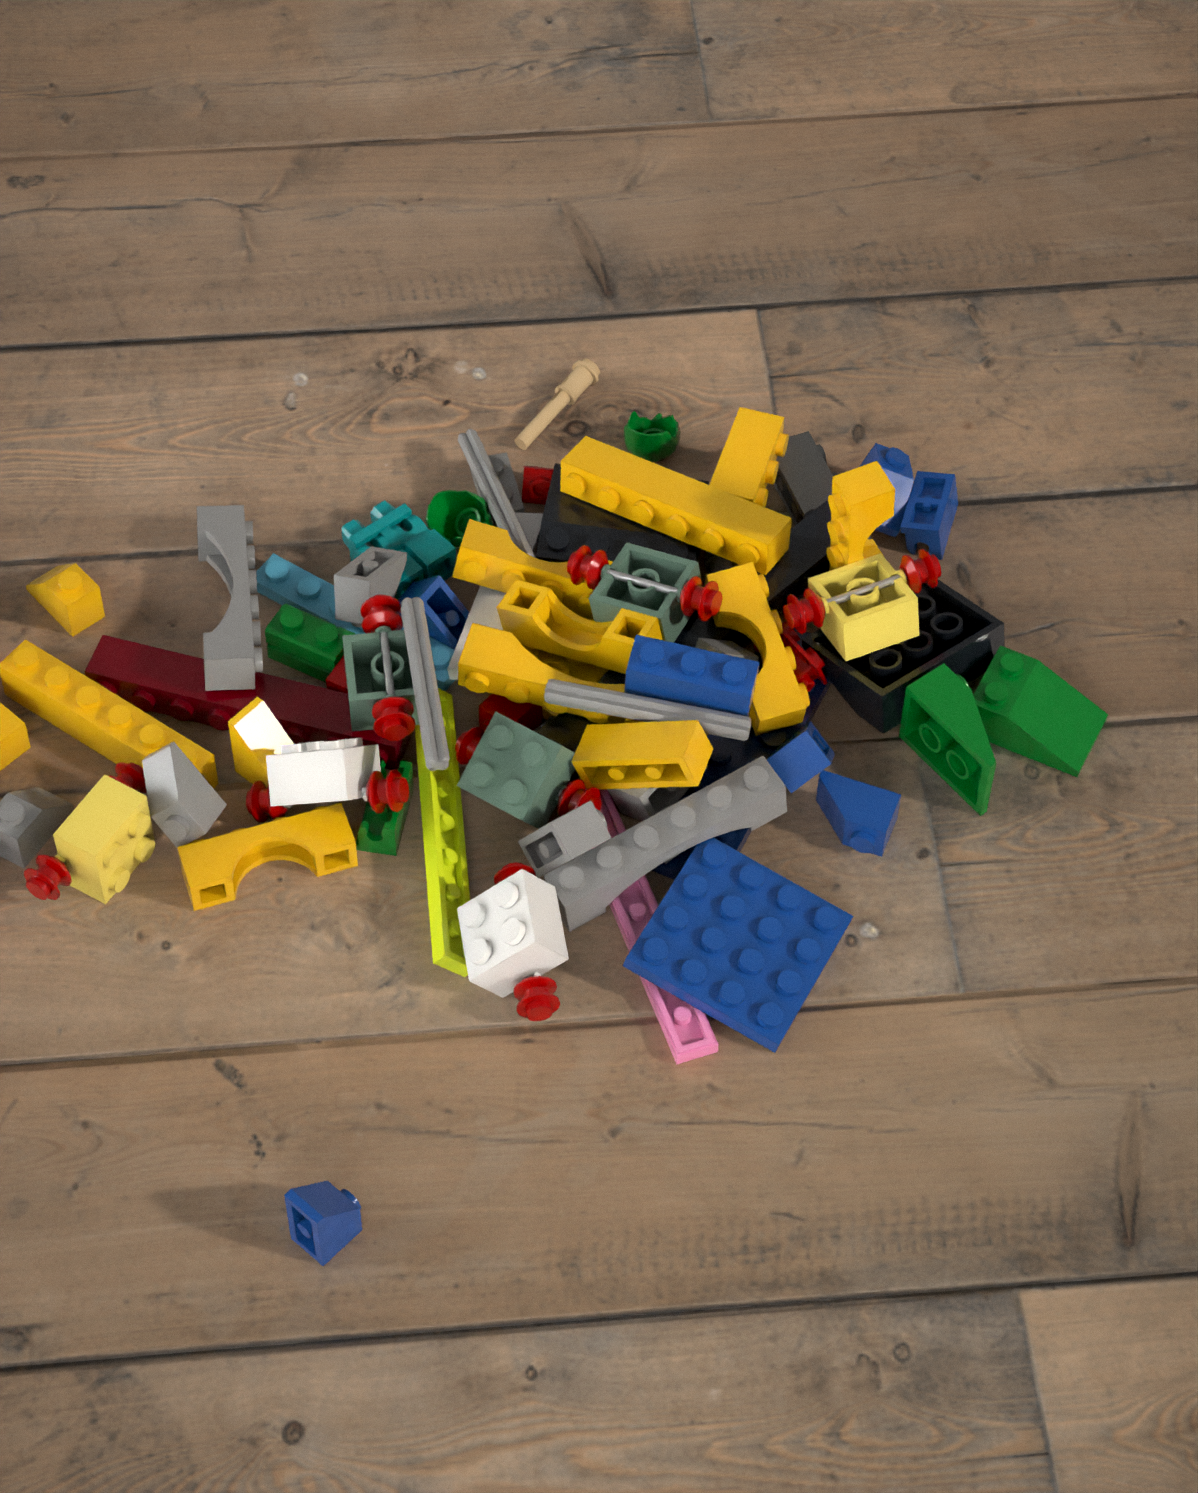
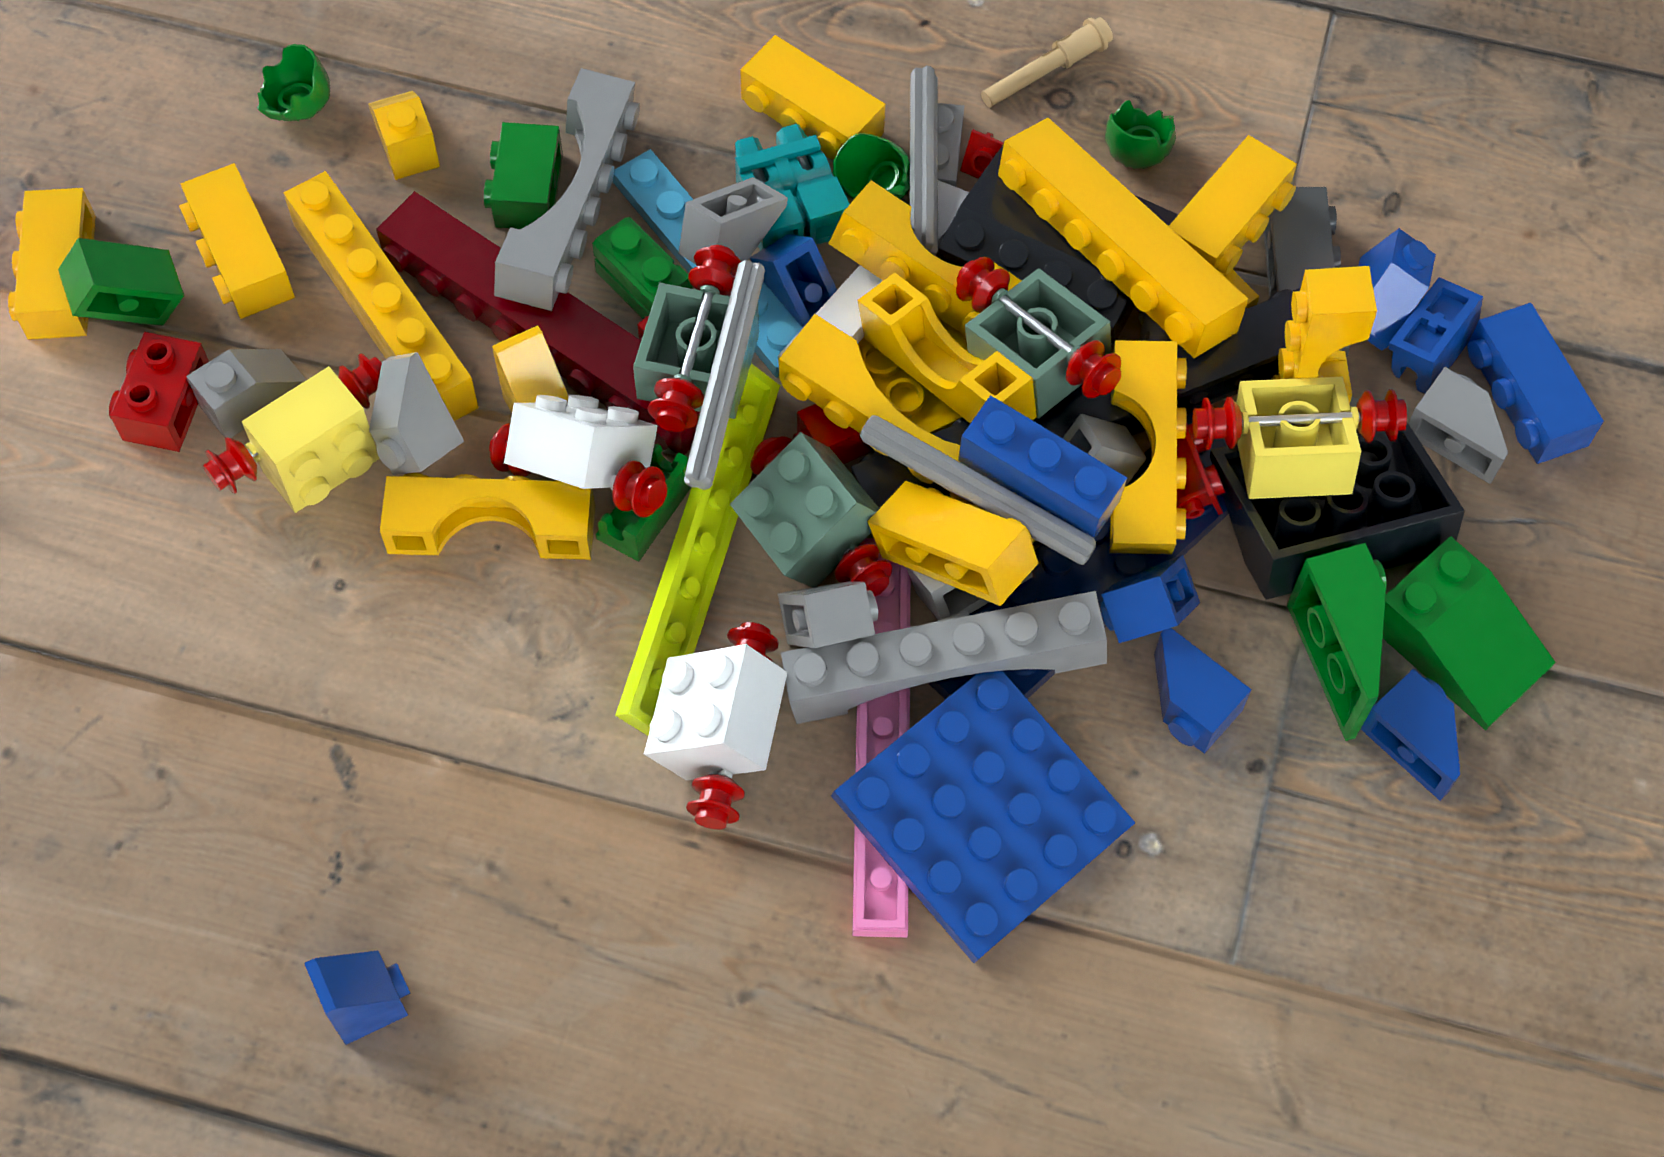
camera: 20 degrees right, 10 degrees up
(182, 599) = (525, 173): none -> green brick
(371, 475) = (807, 93): none -> yellow brick
(976, 570) = (1460, 425): none -> light grey slope
(1015, 526) = (1533, 383): none -> blue brick
(1031, 790) = (1418, 731): none -> blue slope

